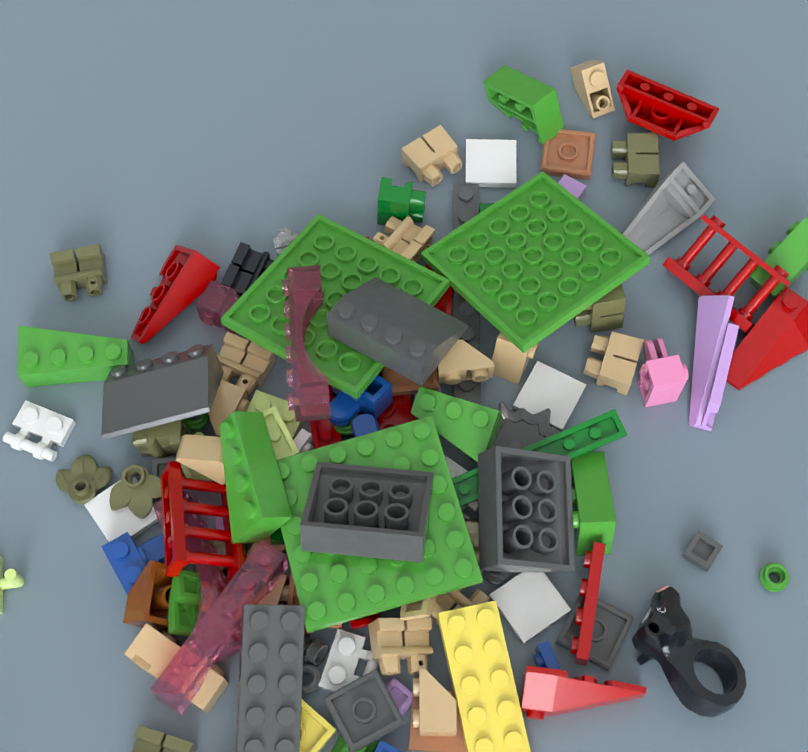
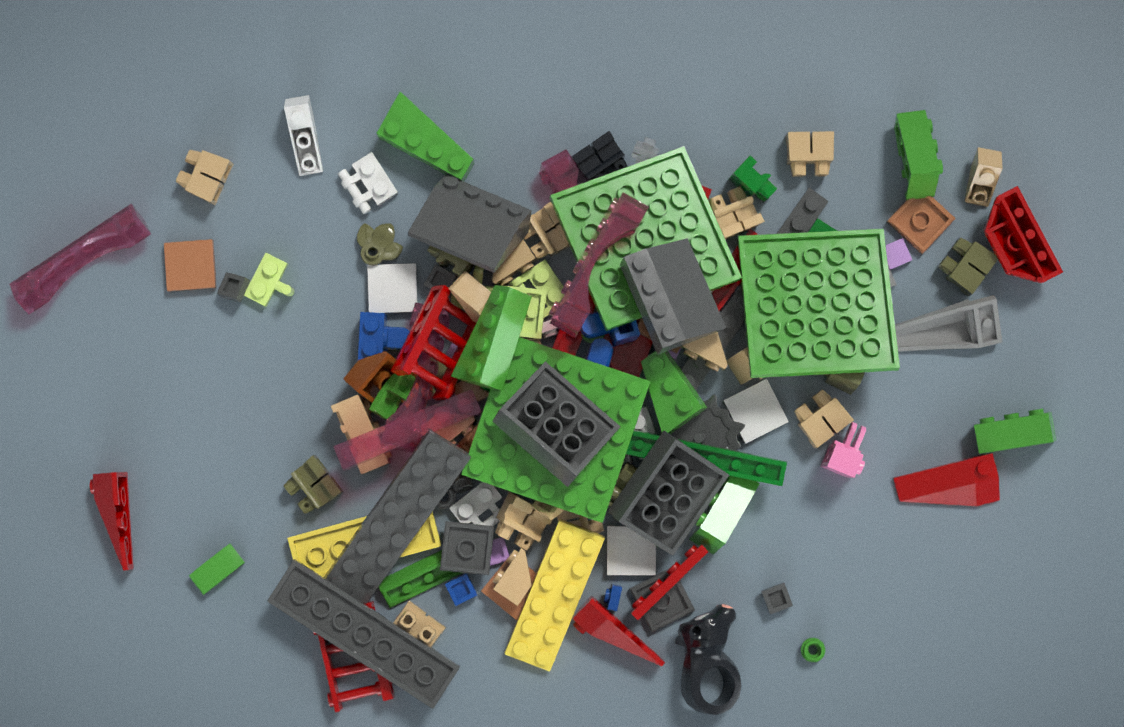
camera: 30 degrees right, 20 degrees up
(79, 270) = (463, 64): olive hips -> none
(136, 495) = (408, 286): olive plate -> none
(184, 279) = (542, 133): red wedge -> none
(491, 163) = (853, 187): white tile -> none
(701, 282) = (938, 427): red fence -> none
(712, 358) = (893, 468): lavender wedge -> none

